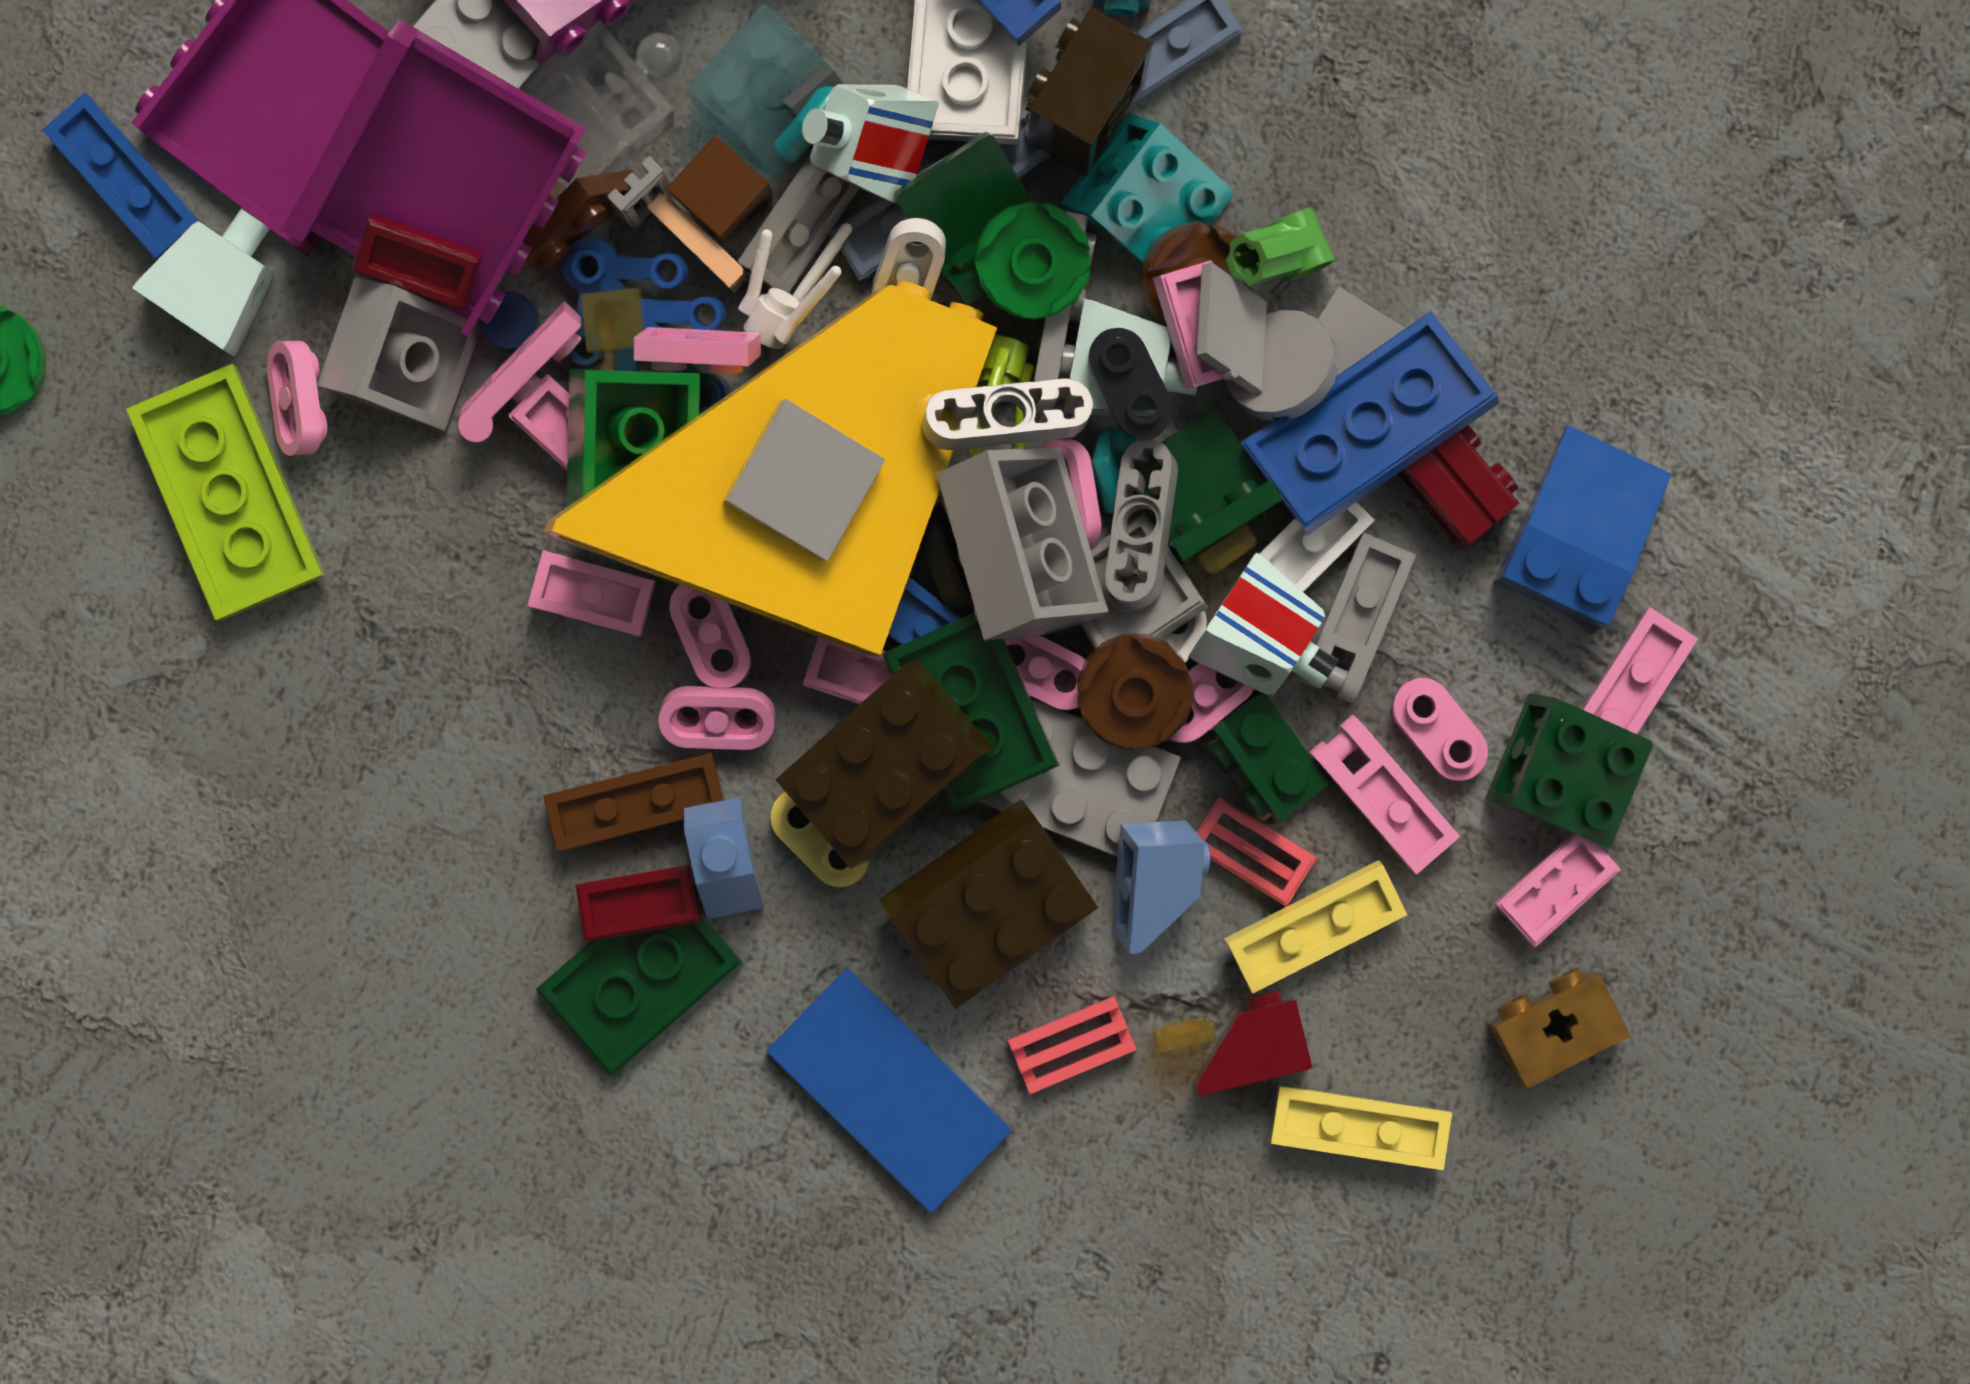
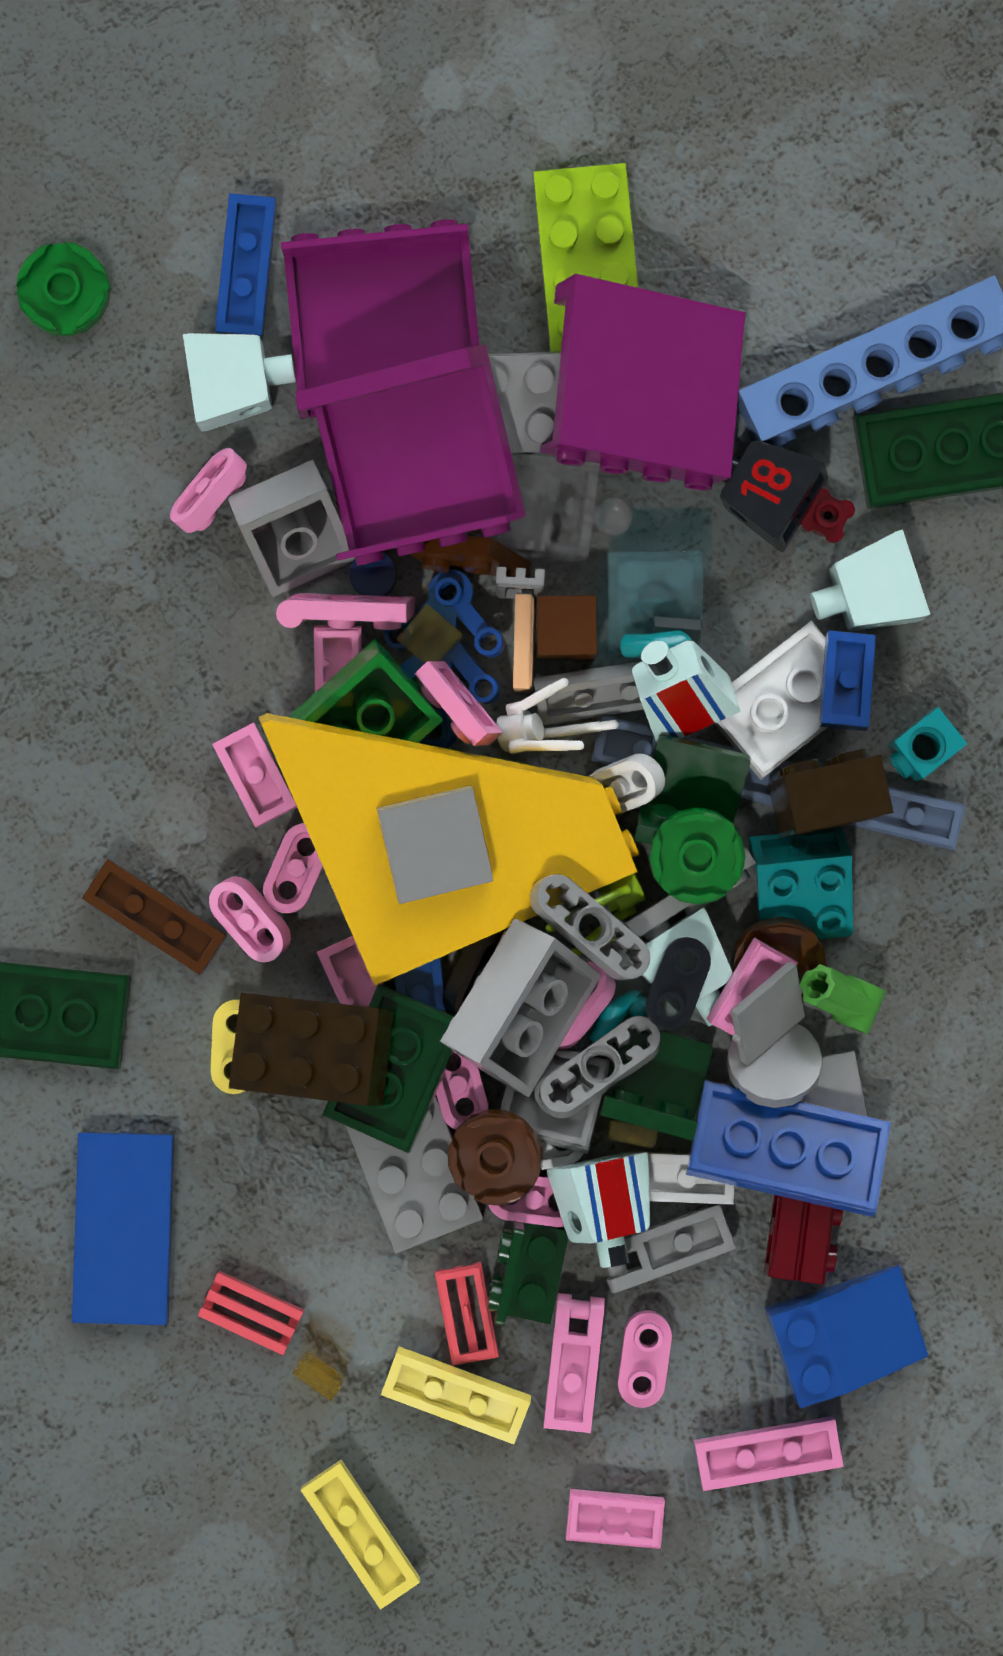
camera: 45 degrees right, 0 degrees up
(225, 492) = (114, 502): lime plate -> none
(418, 261) = (354, 489): dark red tile -> none
(637, 902) = (95, 975): dark red tile -> none
(722, 858) = (168, 1000): medium blue slope -> none
(988, 903) = (286, 1187): dark brown brick -> none
(1155, 879) = (395, 1273): medium blue slope -> none
(1256, 1046) = (350, 1426): dark red slope -> none
(1540, 1055) = (548, 1617): pearl gold brick -> none
(1570, 769) = (691, 1461): dark green bracket -> none

